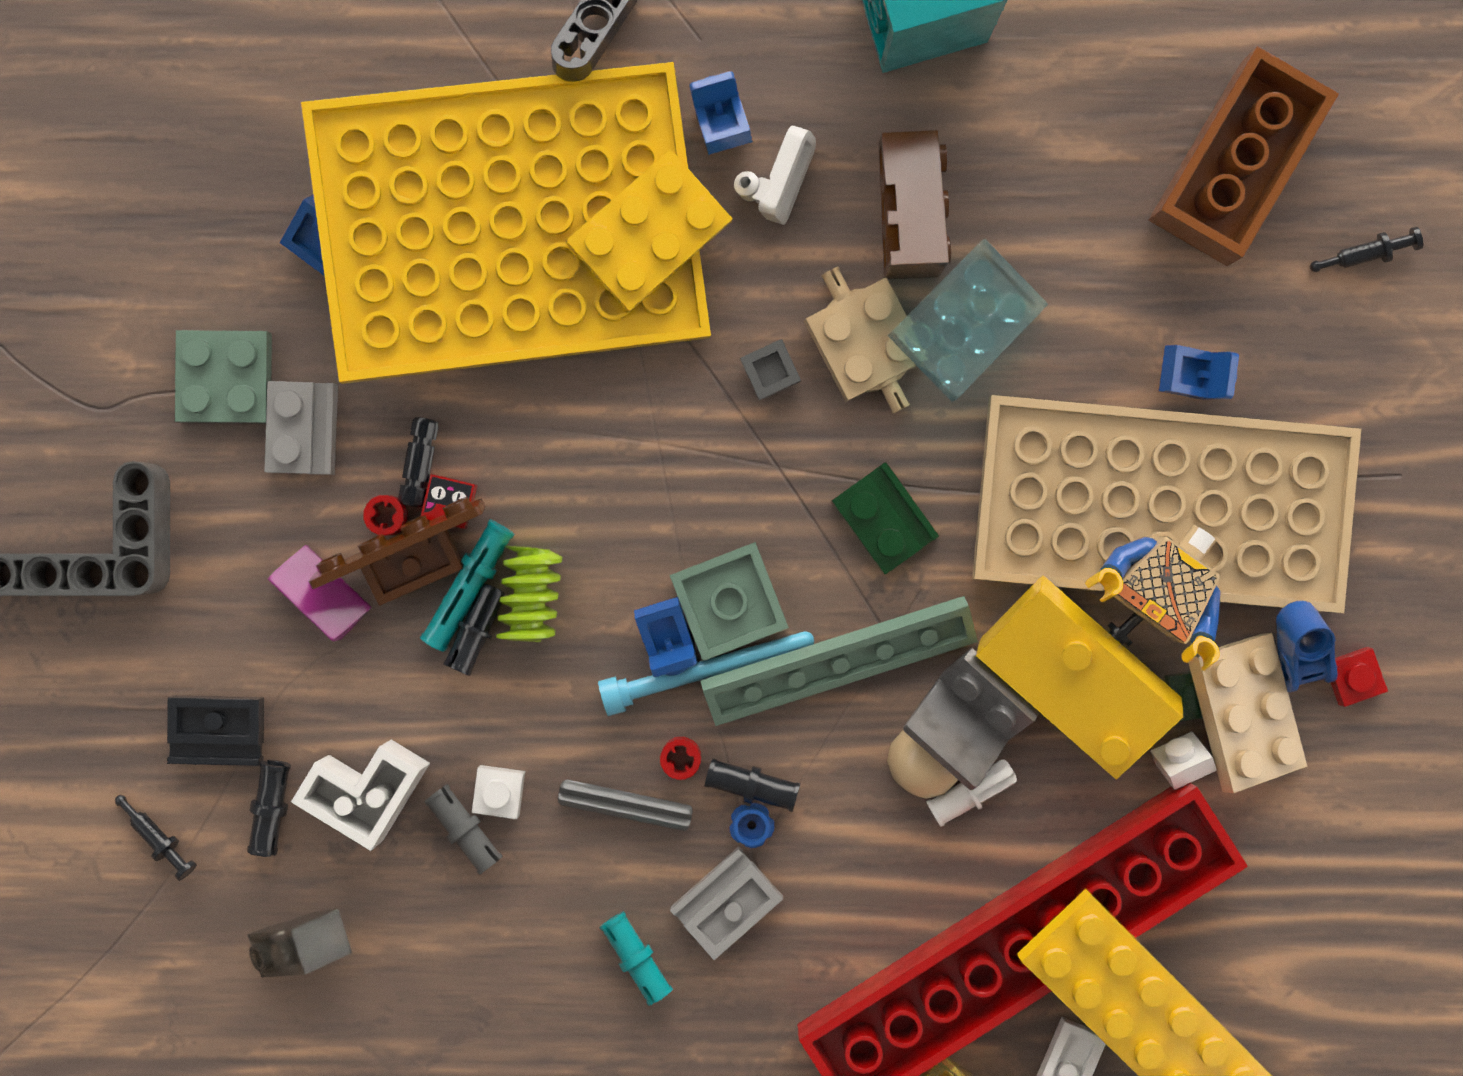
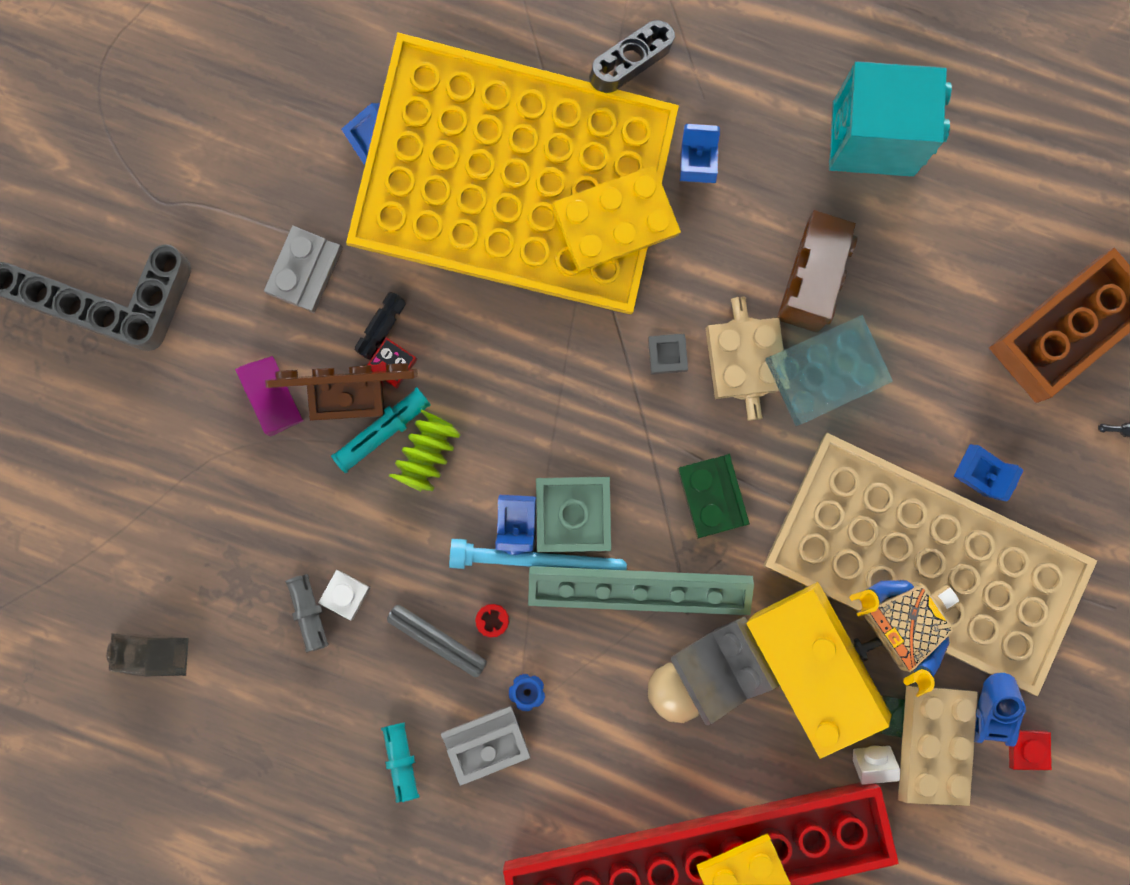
camera: 20 degrees right, 5 degrees down
(156, 839) = (75, 541): black piece -> none
(215, 730) = (150, 468): black plate -> none
(222, 376) = (260, 210): sand green plate -> none
(268, 808) = (166, 542): black pin -> none
(363, 803) = (238, 564): white brick -> none
(371, 512) = (331, 350): red bush -> none
(474, 630) = (374, 465): black axle -> none
(752, 784) = (539, 661): black pin -> none
(780, 192) = (722, 227): white piece -> none
(961, 799) = (696, 730): white axle -> none

